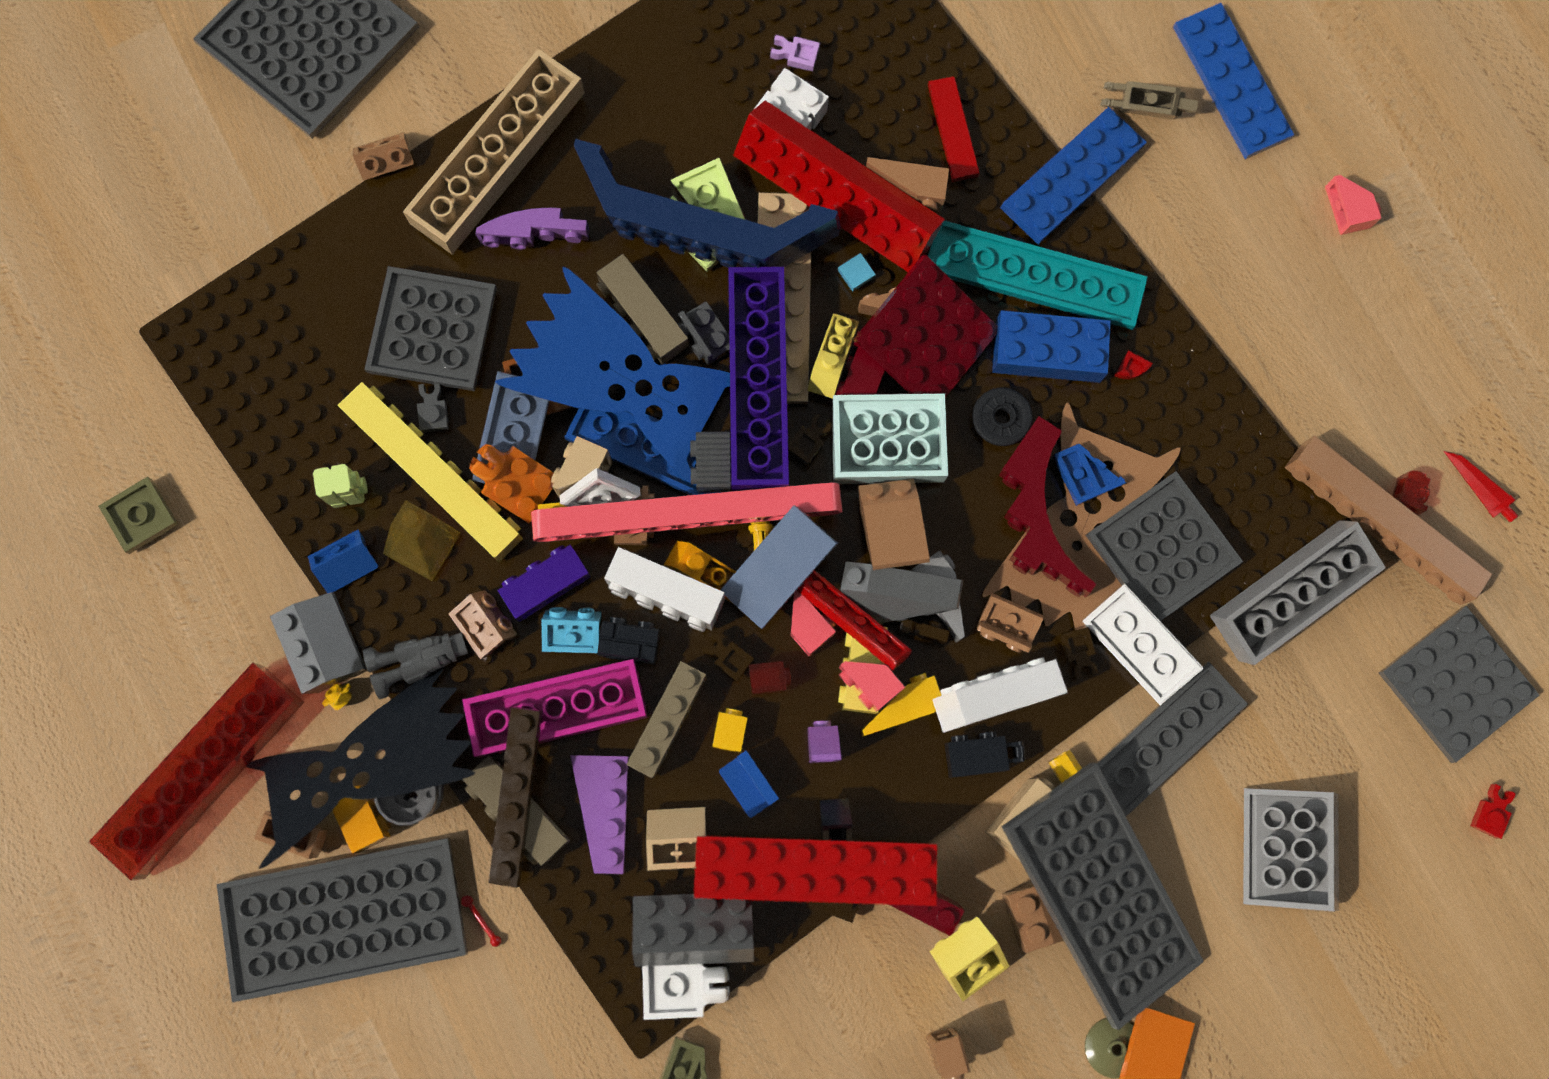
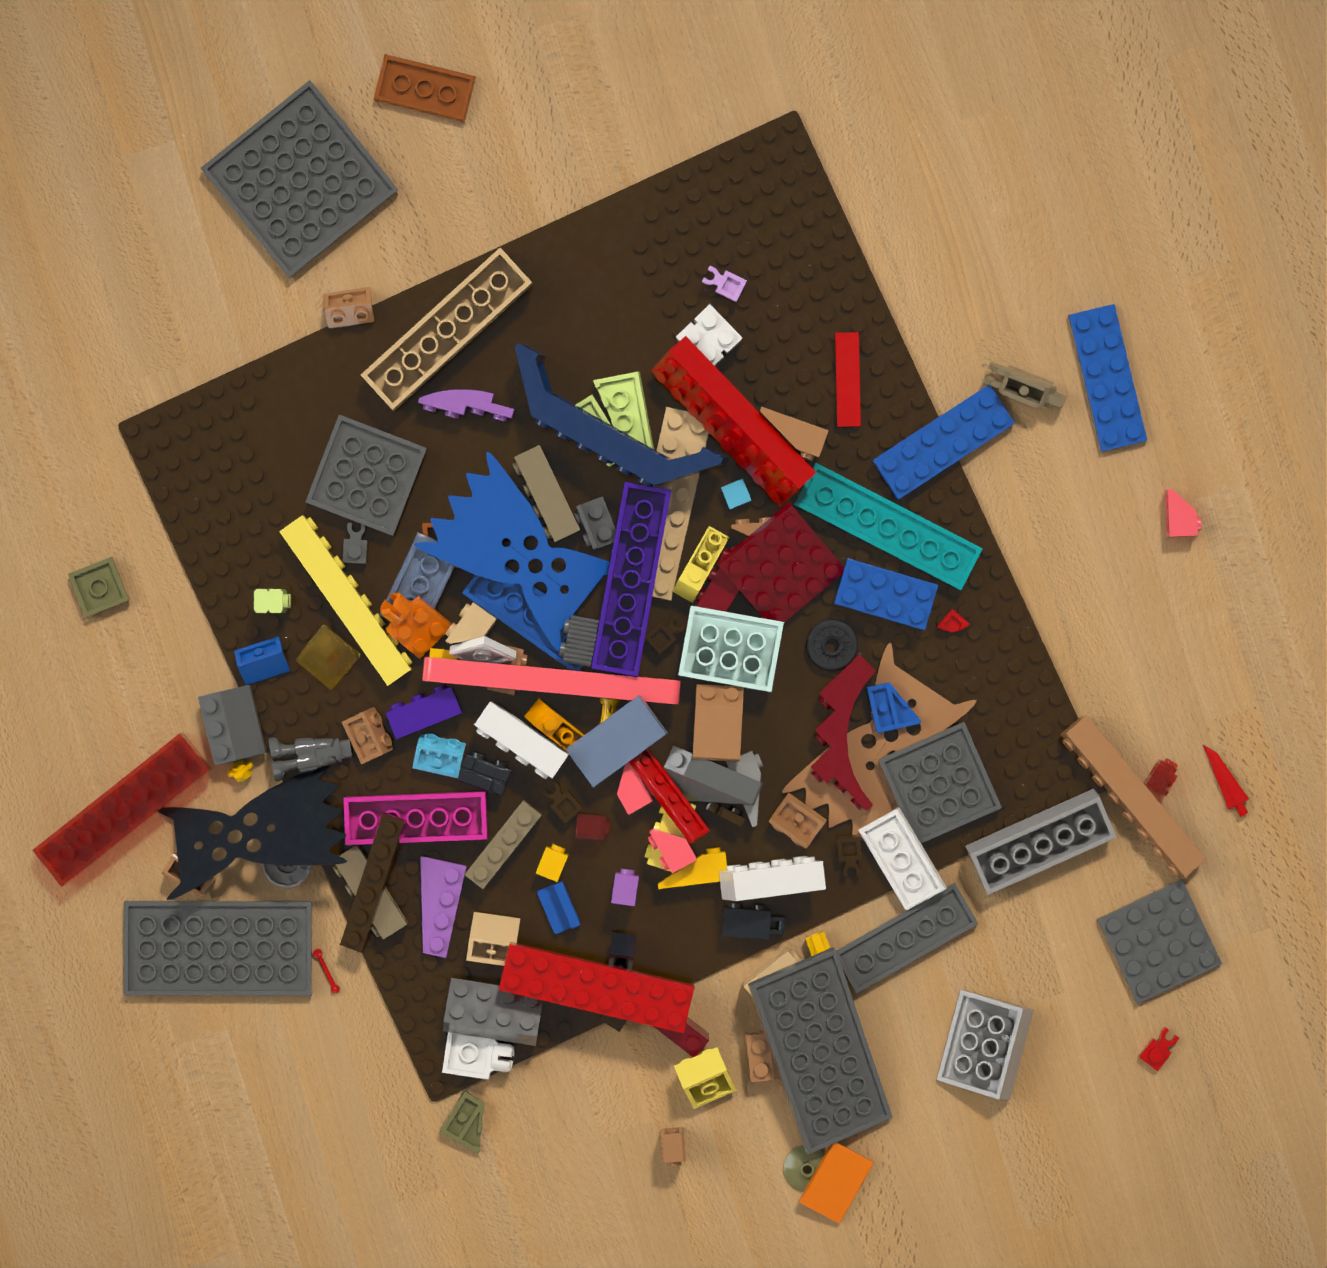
camera: 15 degrees right, 10 degrees up
(361, 823) = (245, 877): light orange brick -> none

